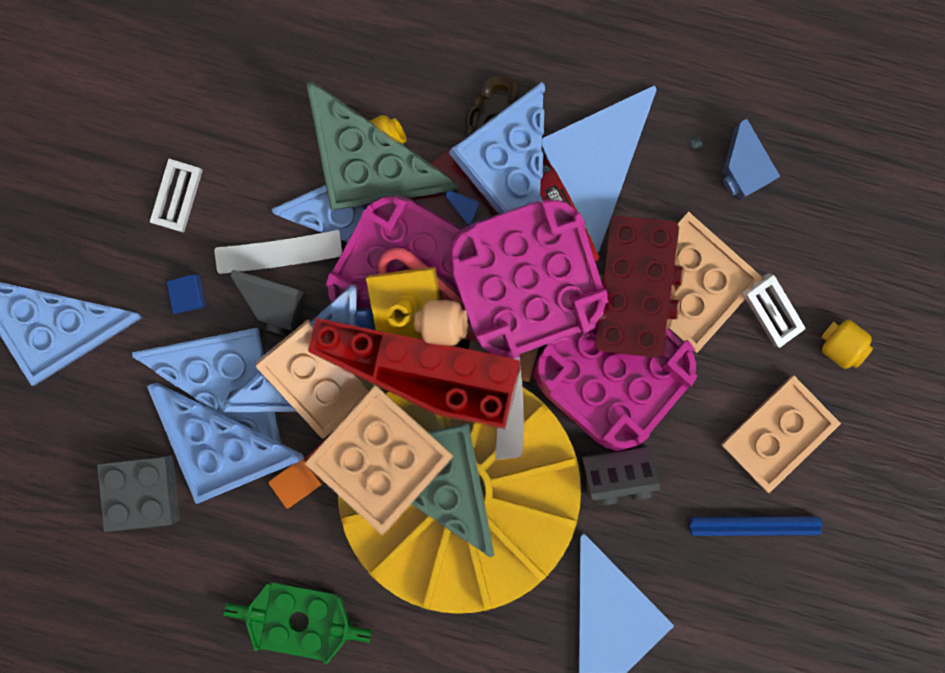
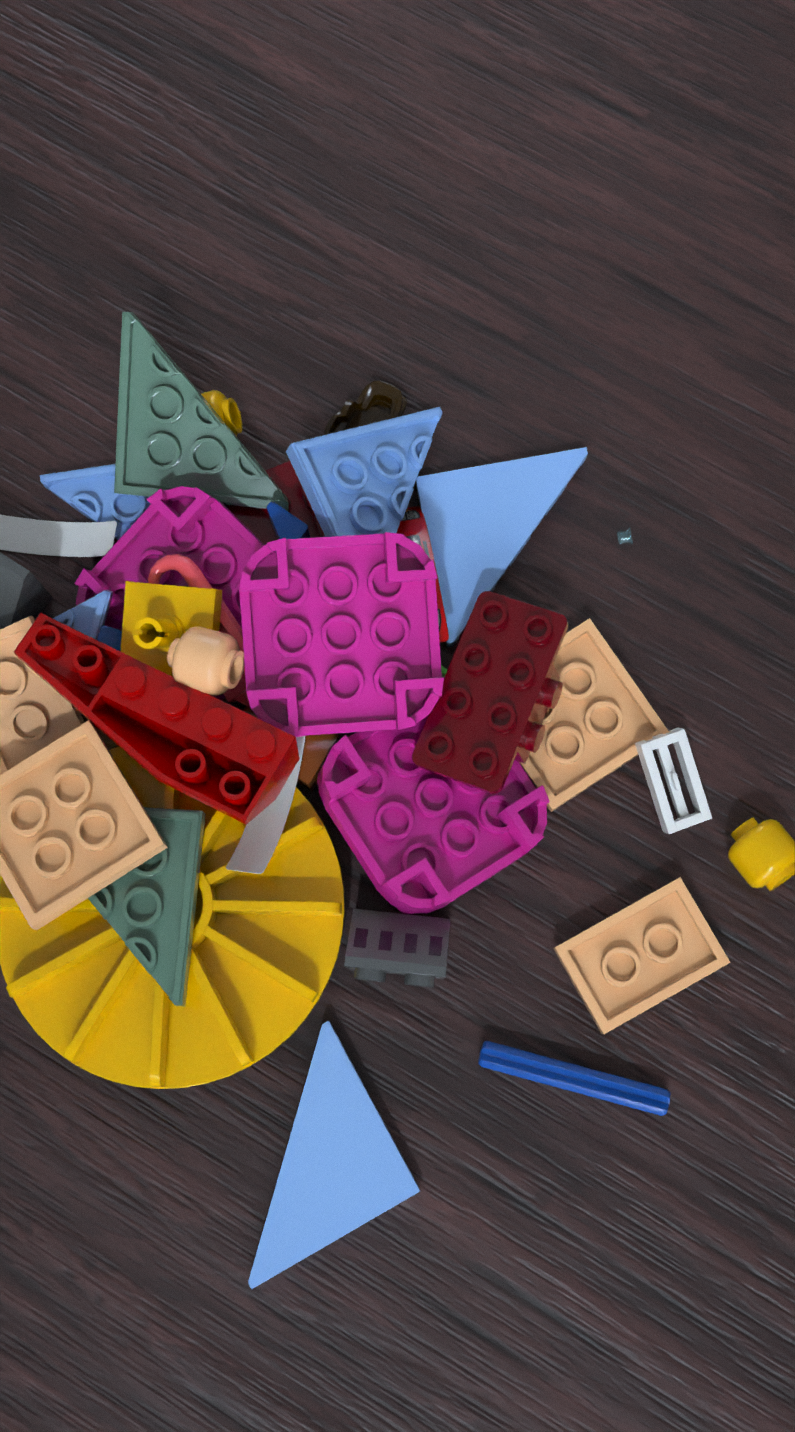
camera: 15 degrees right, 10 degrees down
(747, 163) = (686, 579): medium blue slope -> none

